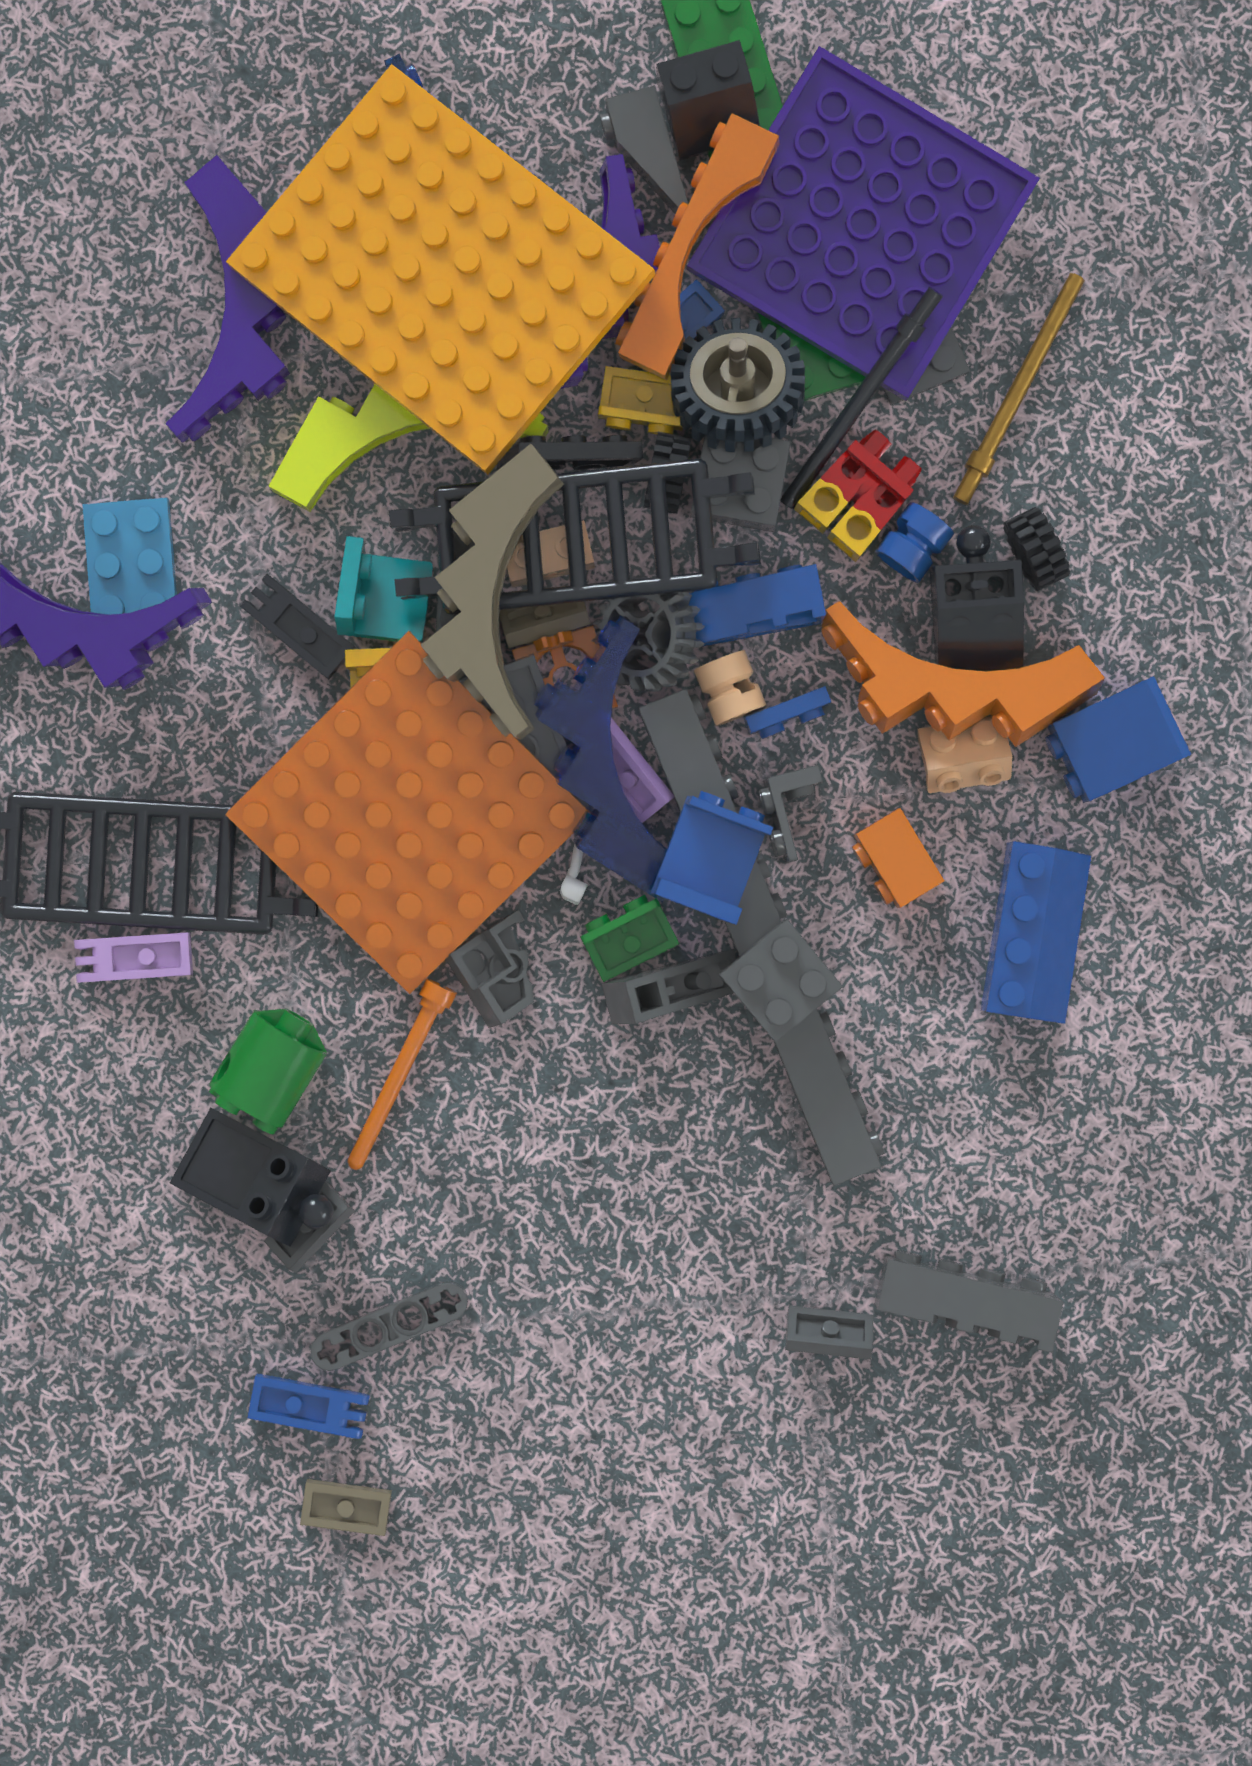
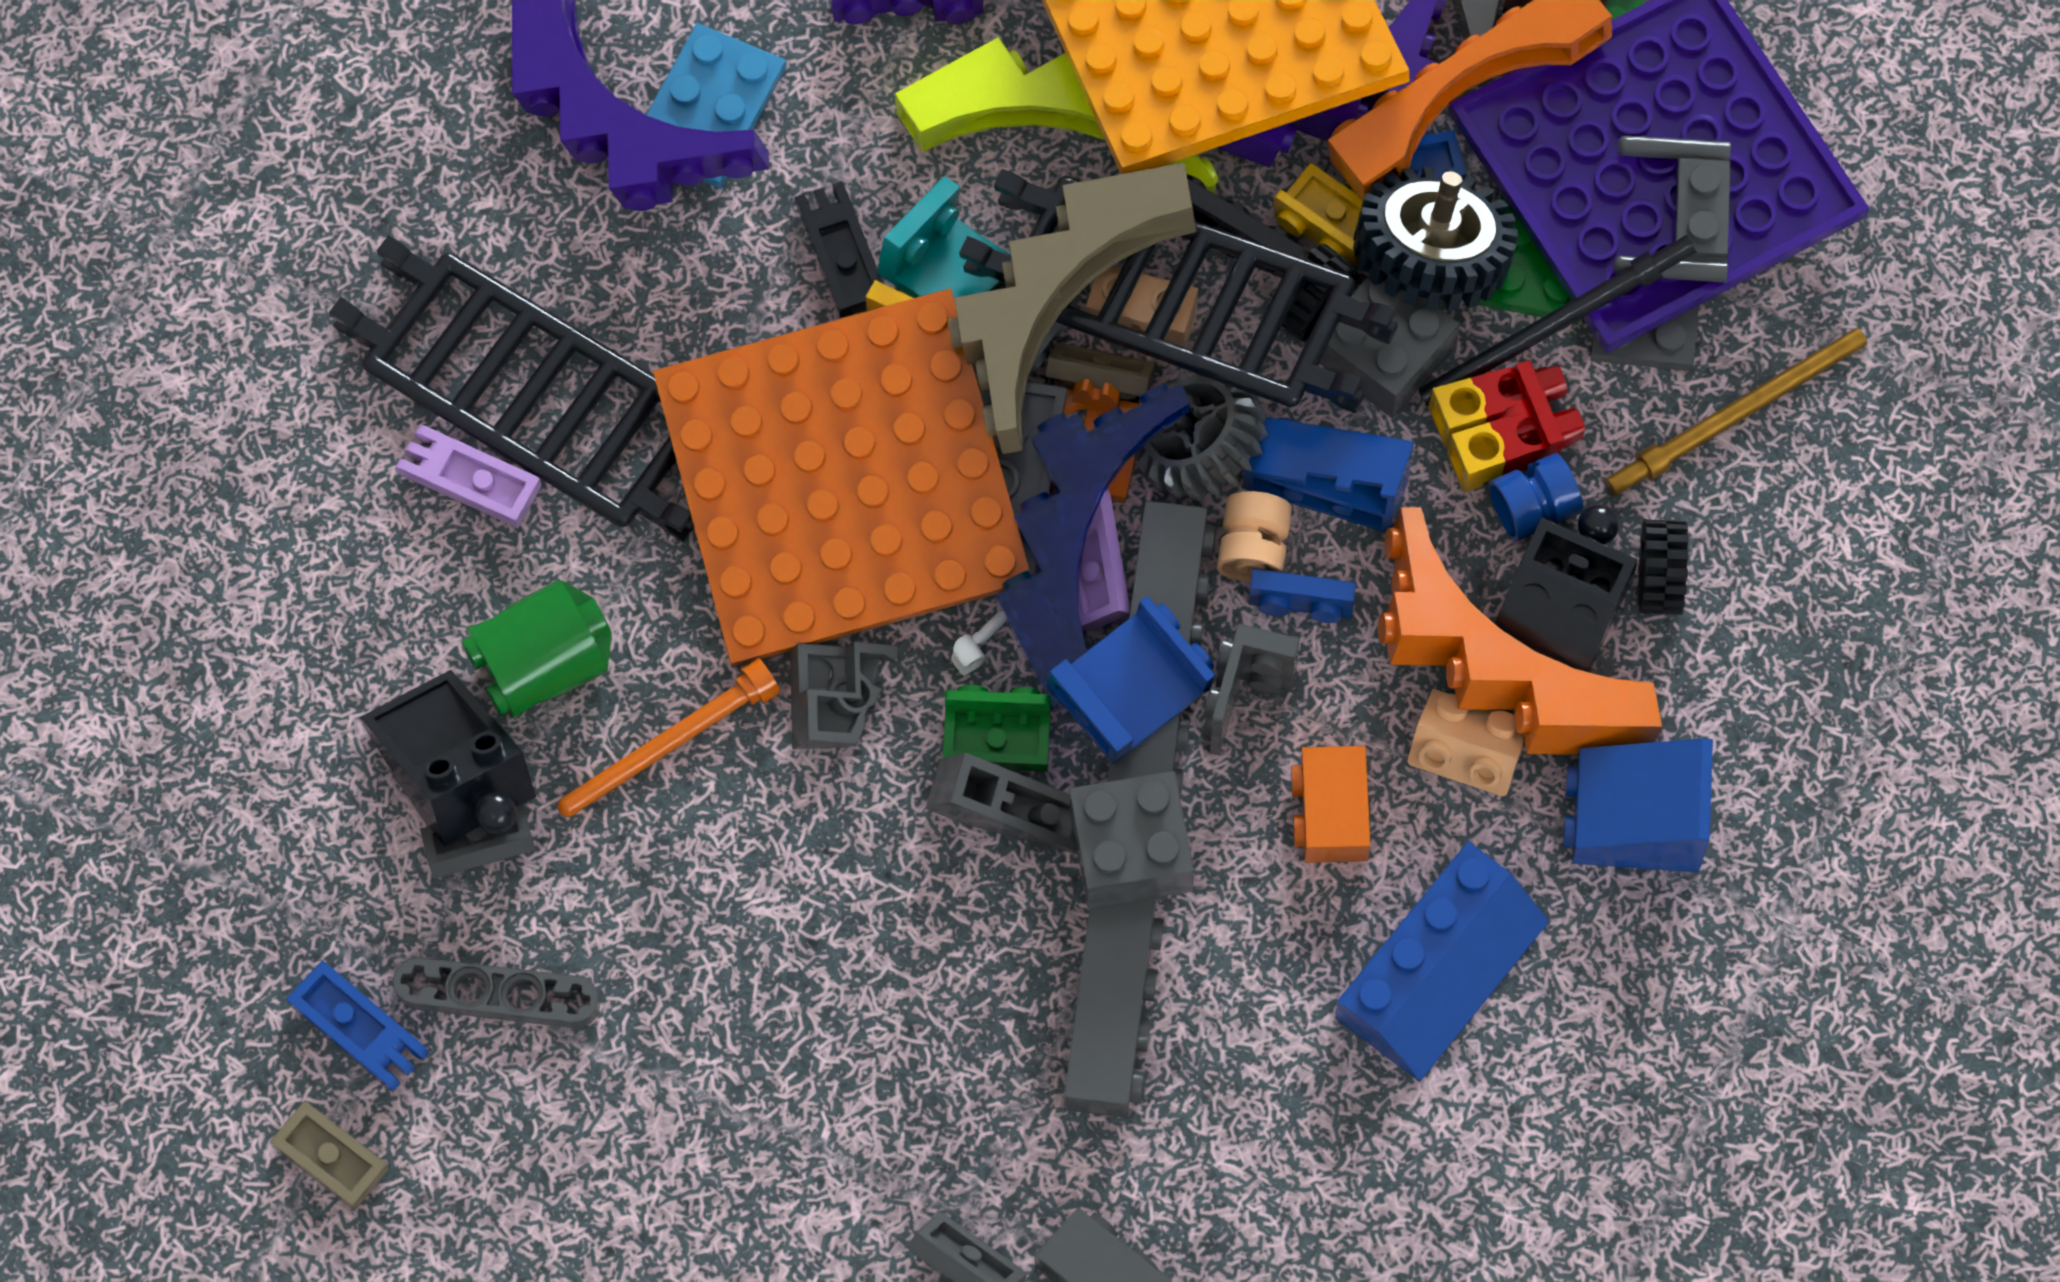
camera: 30 degrees right, 20 degrees down
(916, 246) = (1700, 202): none -> dark grey plate

